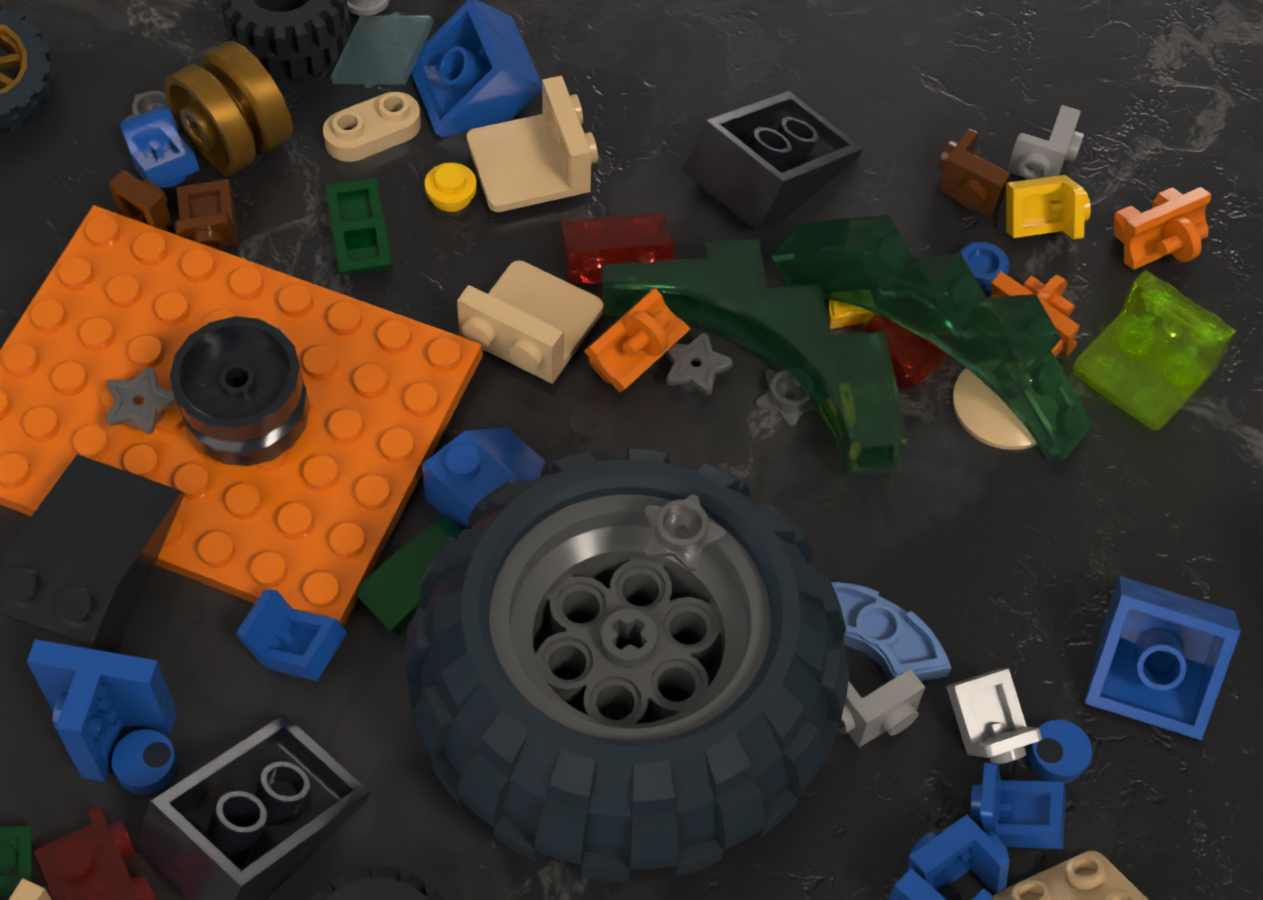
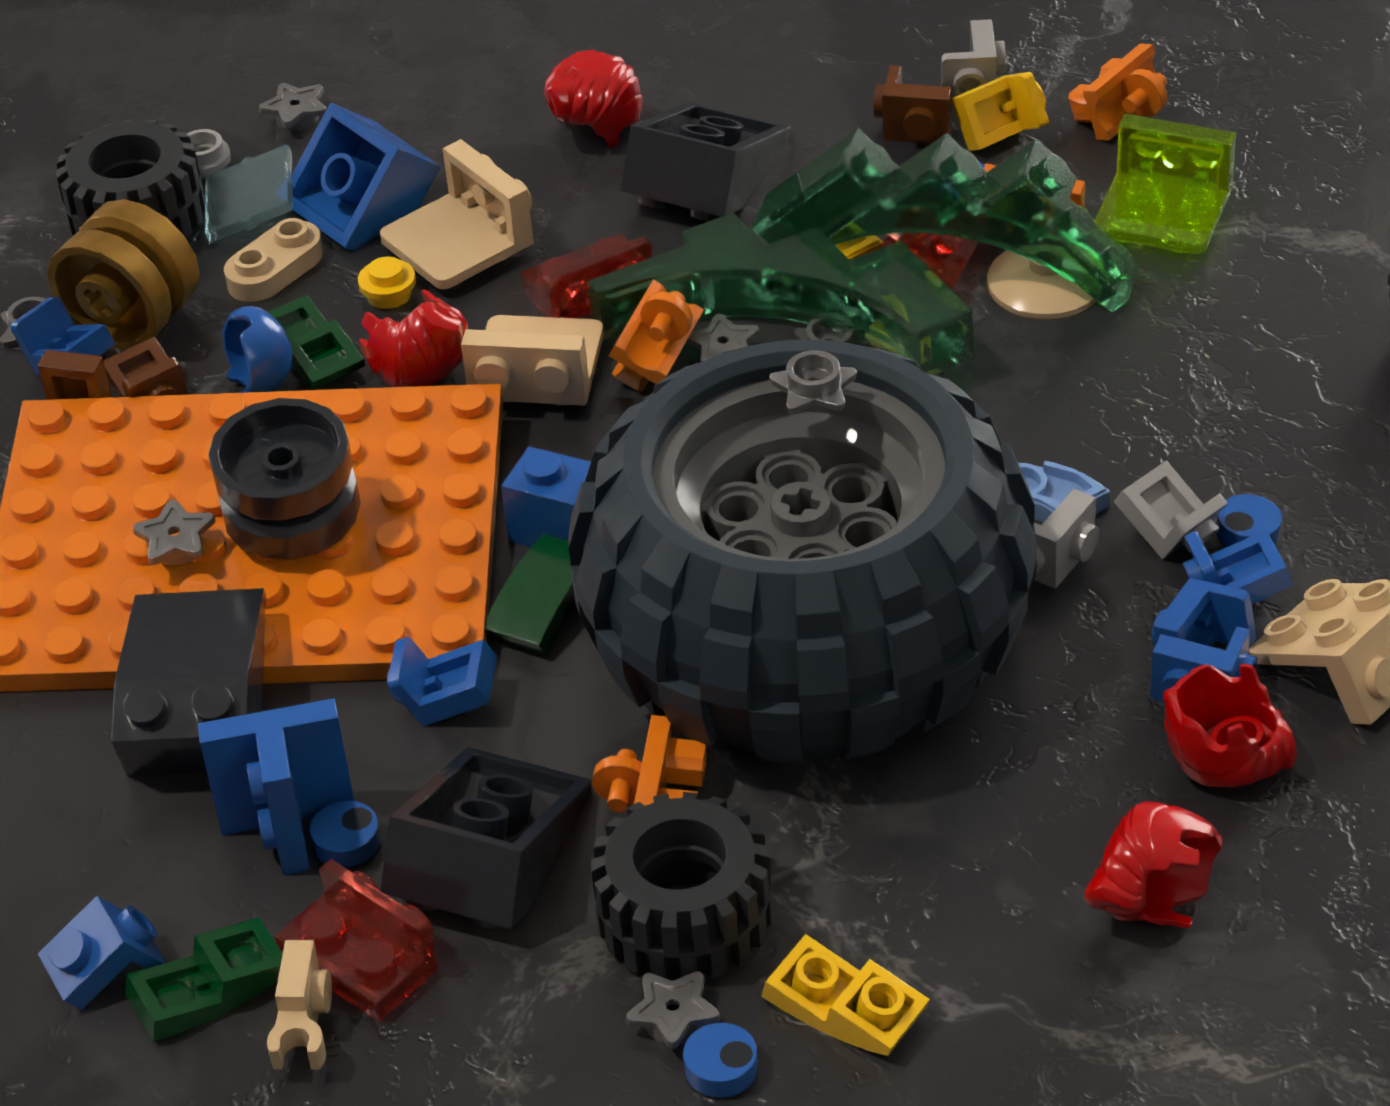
camera: 15 degrees left, 15 degrees down
(304, 228) = (256, 350): none -> blue hair
(428, 808) = (665, 760): none -> orange hips
(434, 276) = (418, 348): none -> red hair
(705, 59) = (595, 92): none -> red hair
(1162, 657) = (1304, 413): blue slope -> none

